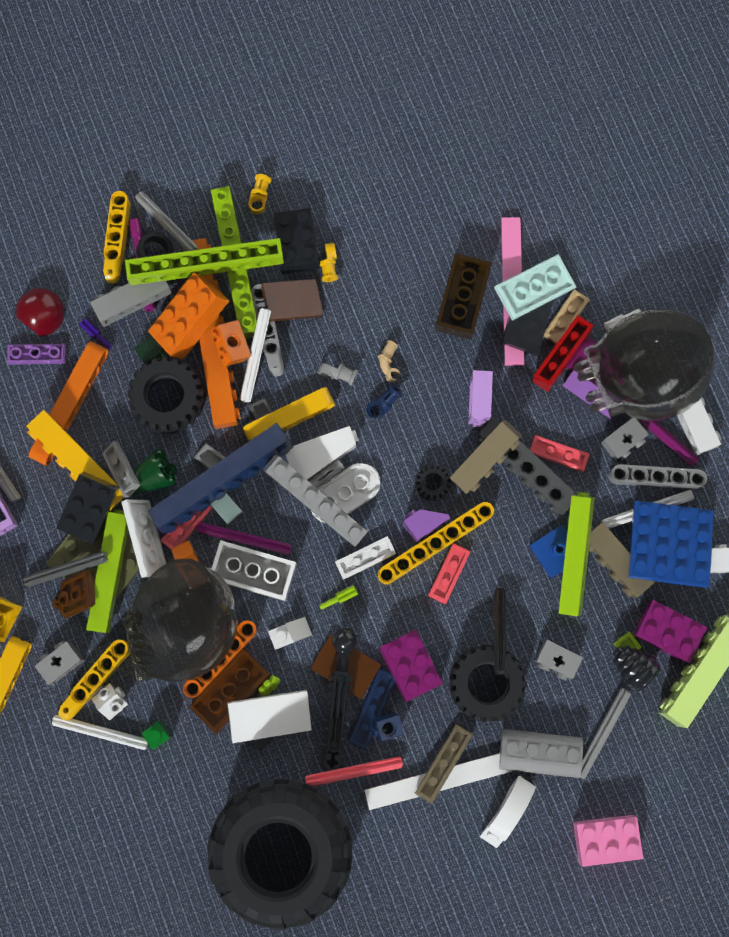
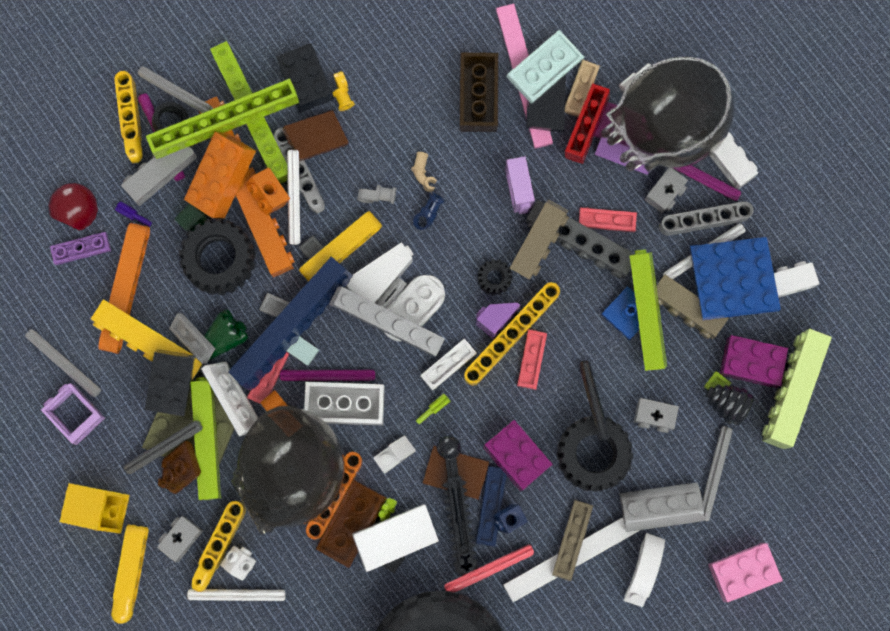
camera: 15 degrees left, 0 degrees up
(156, 735) = (291, 583): green brick -> none
(259, 193) = (257, 41): yellow connector -> none

